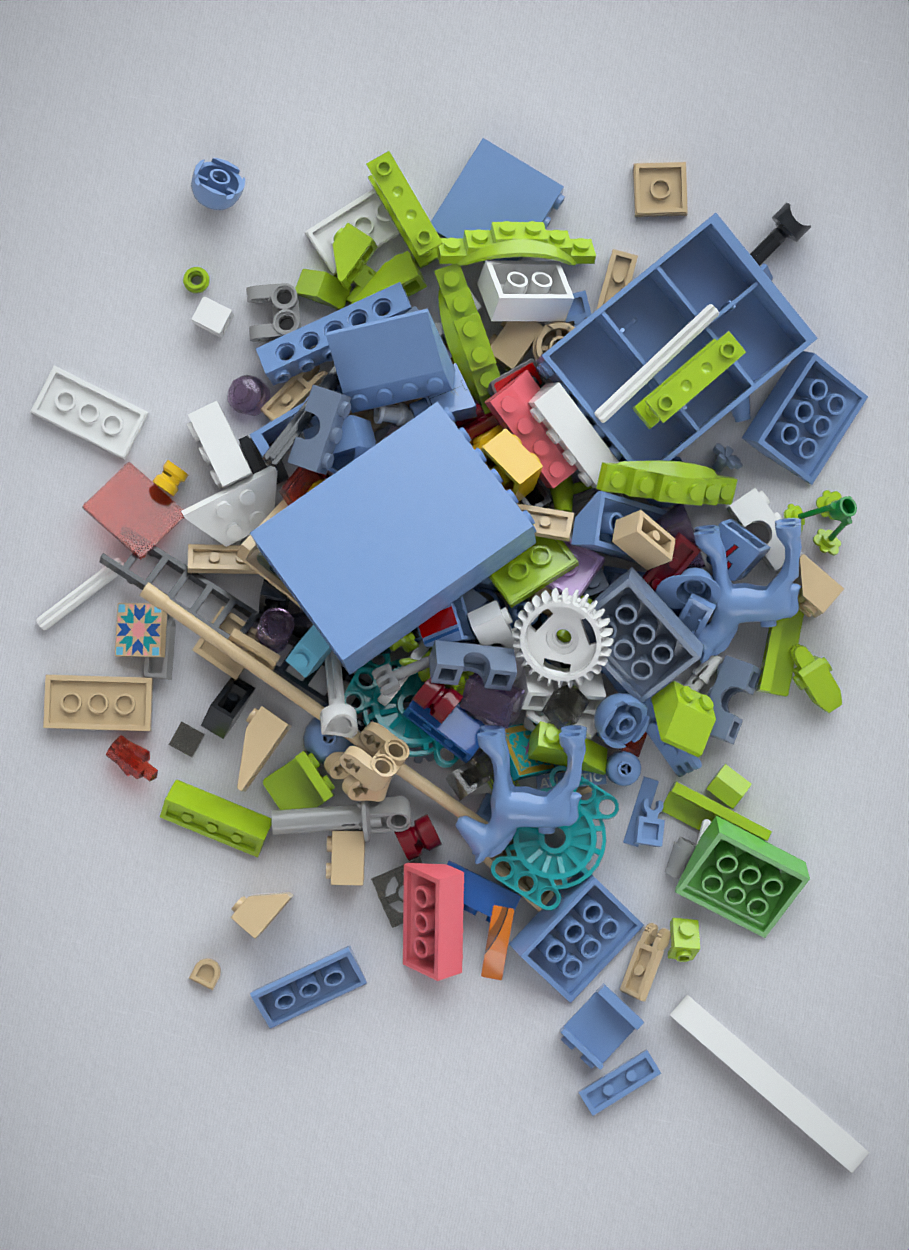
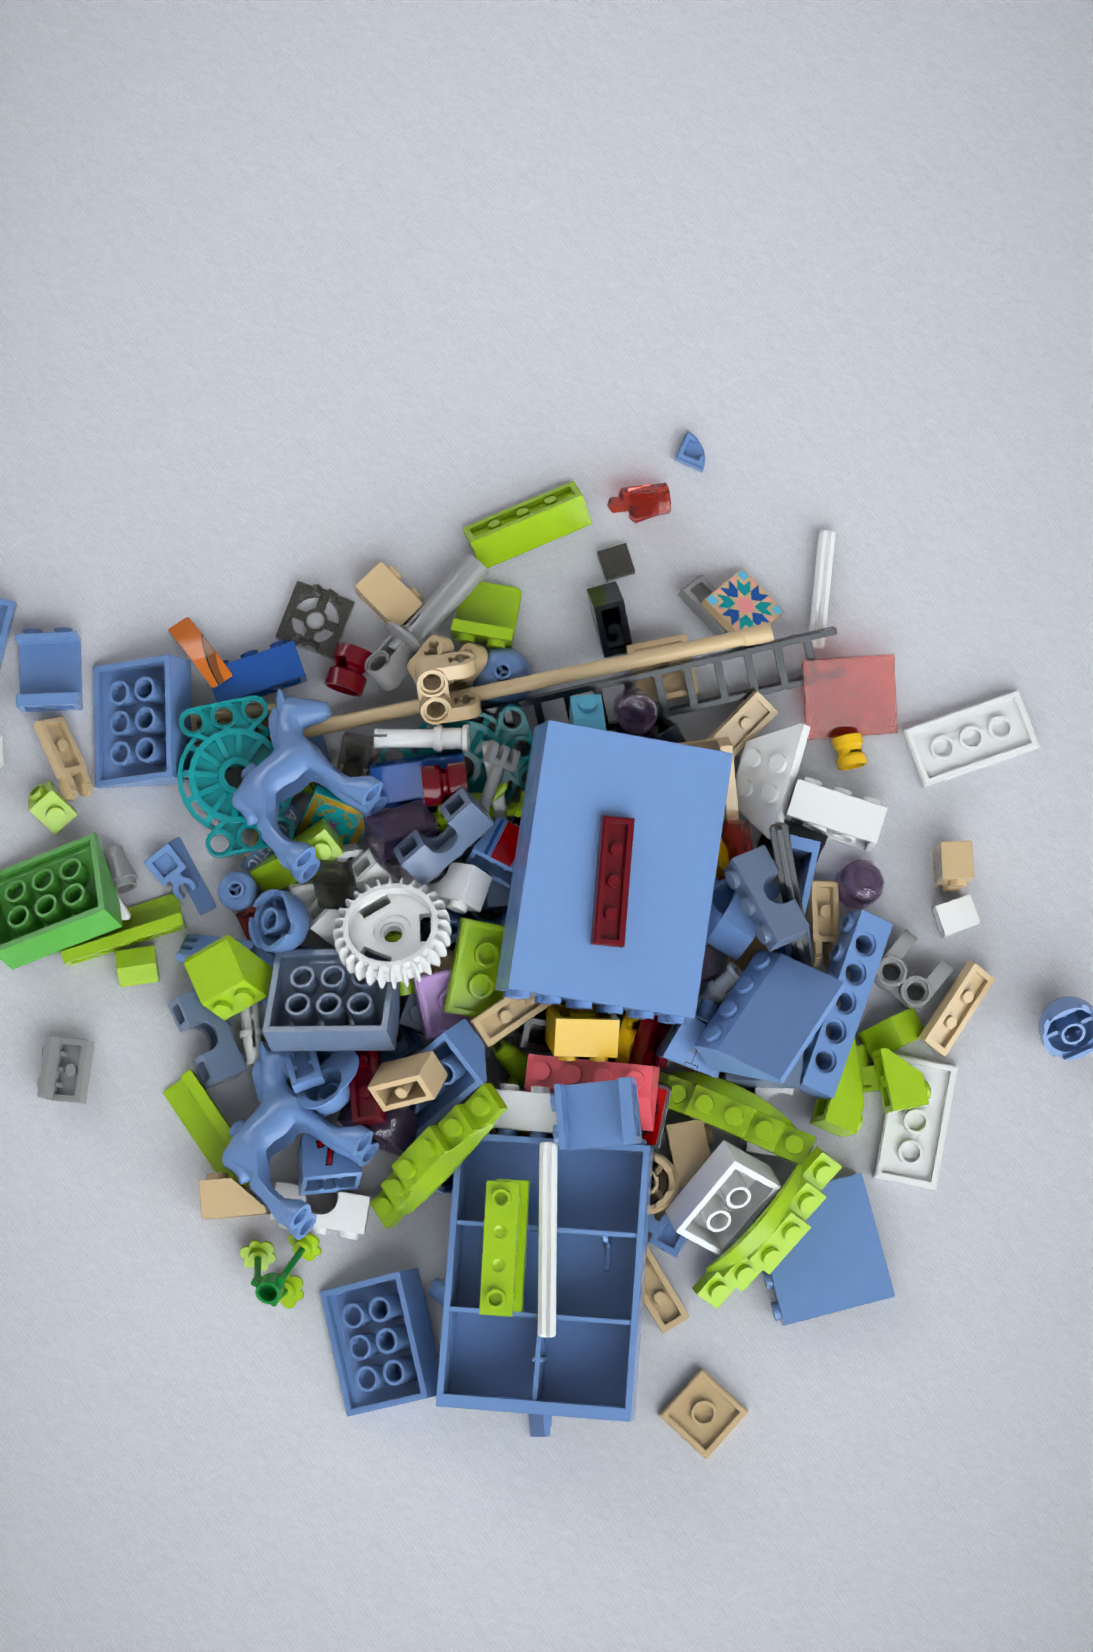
camera: 130 degrees right, 5 degrees down
(69, 760) = (691, 453): none -> medium blue tile
(98, 703) = (715, 518): tan plate -> none
(183, 345) = (953, 865): none -> tan brick
(193, 272) = (1008, 927): lime plate -> none
(206, 973) = (409, 400): tan tile -> none
(255, 649) = (624, 680): tan plate -> none
(259, 911) = (416, 484): tan slope -> none
(260, 741) = (555, 615): tan slope -> none
(269, 264) = (956, 1008): none -> tan plate
(309, 987) = (317, 469): medium blue slope -> none
(338, 717) = (510, 688): white piece -> none
(404, 209) = (895, 1162): lime fence -> none
(404, 526) = (612, 881): none -> dark red tile
(411, 733) = (436, 738): none -> white pin
(433, 919) = (269, 615): coral slope -> none
(554, 403) = (596, 1114): none -> medium blue panel
(725, 458) = (414, 1237): sand blue plant -> none
(786, 227) = (562, 1488): black piece -> none
(815, 678) = (155, 1127): lime hinge -> none
(833, 767) = (65, 1069): none -> light grey bracket

